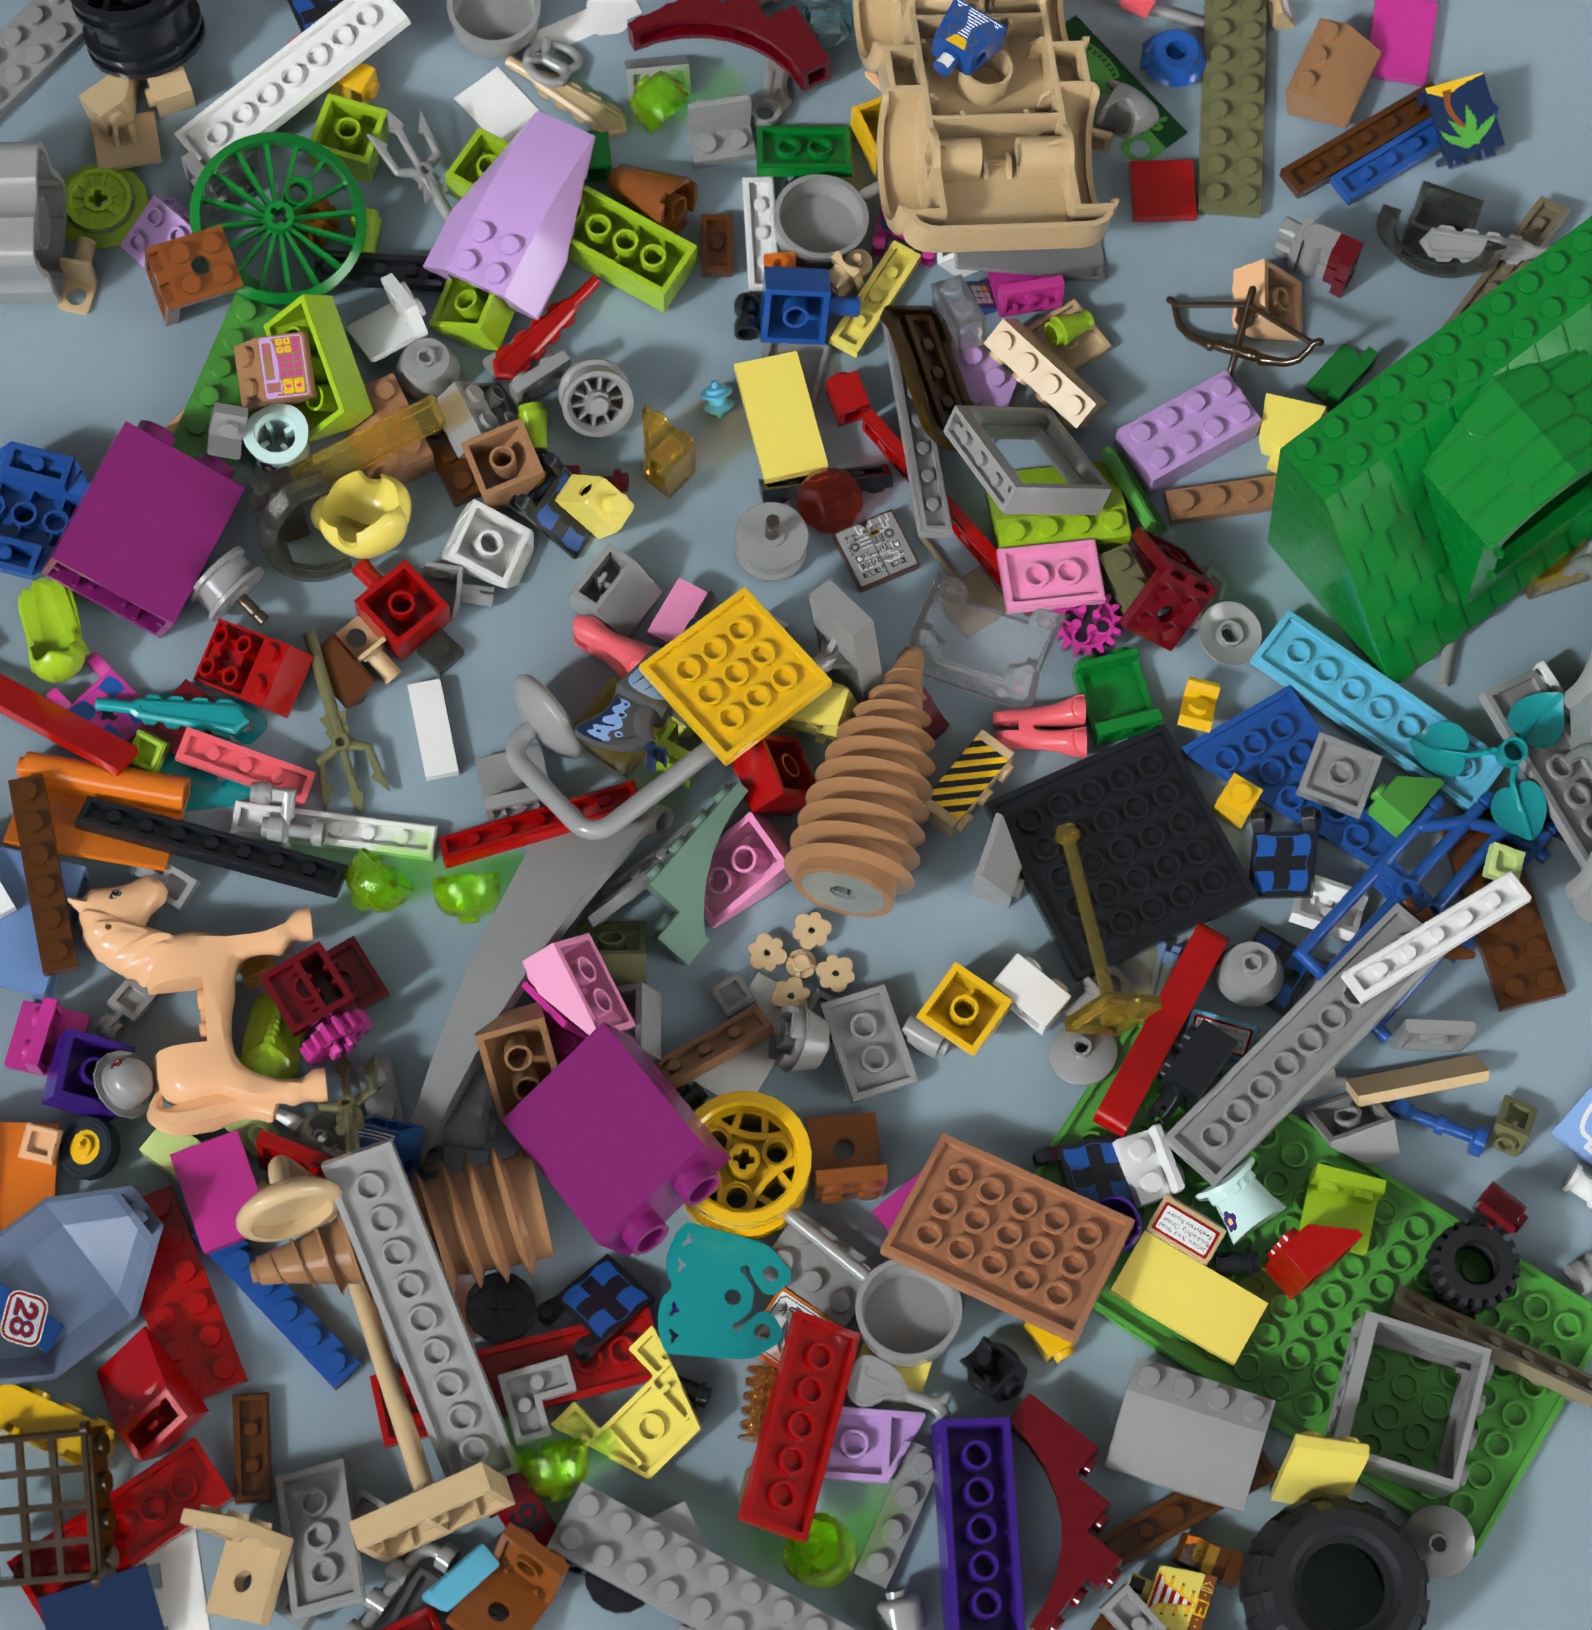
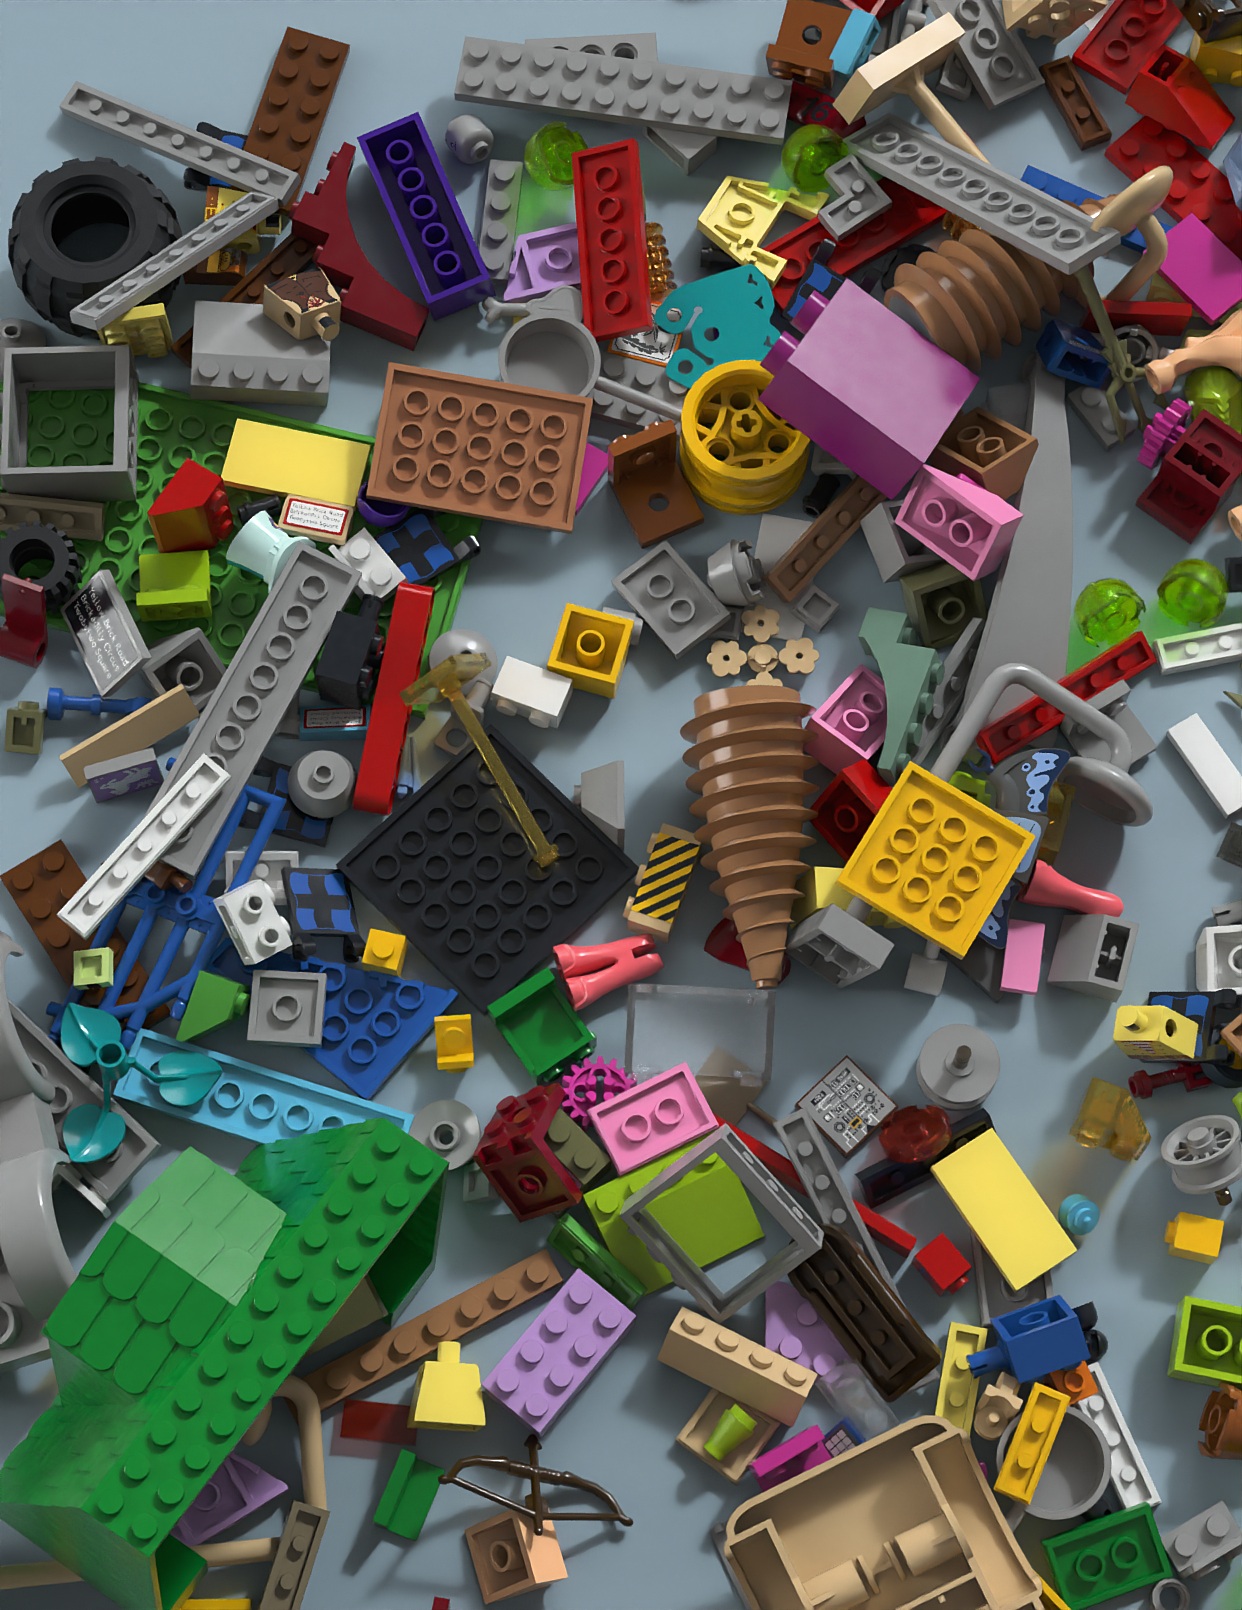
camera: 165 degrees right, 0 degrees up
(630, 350) = (1194, 1237): none -> yellow brick
(716, 245) = (1154, 1403): reddish brown plate -> none
(834, 229) = (1031, 1443): none -> yellow tile
(995, 1370) = (454, 350): black hand -> none
(1133, 1458) = (304, 305): none -> torso
(1263, 1517) = (173, 260): none -> light grey tile
(1352, 850) = (253, 921): none -> white brick
(1419, 1175) = (105, 633): none -> tile

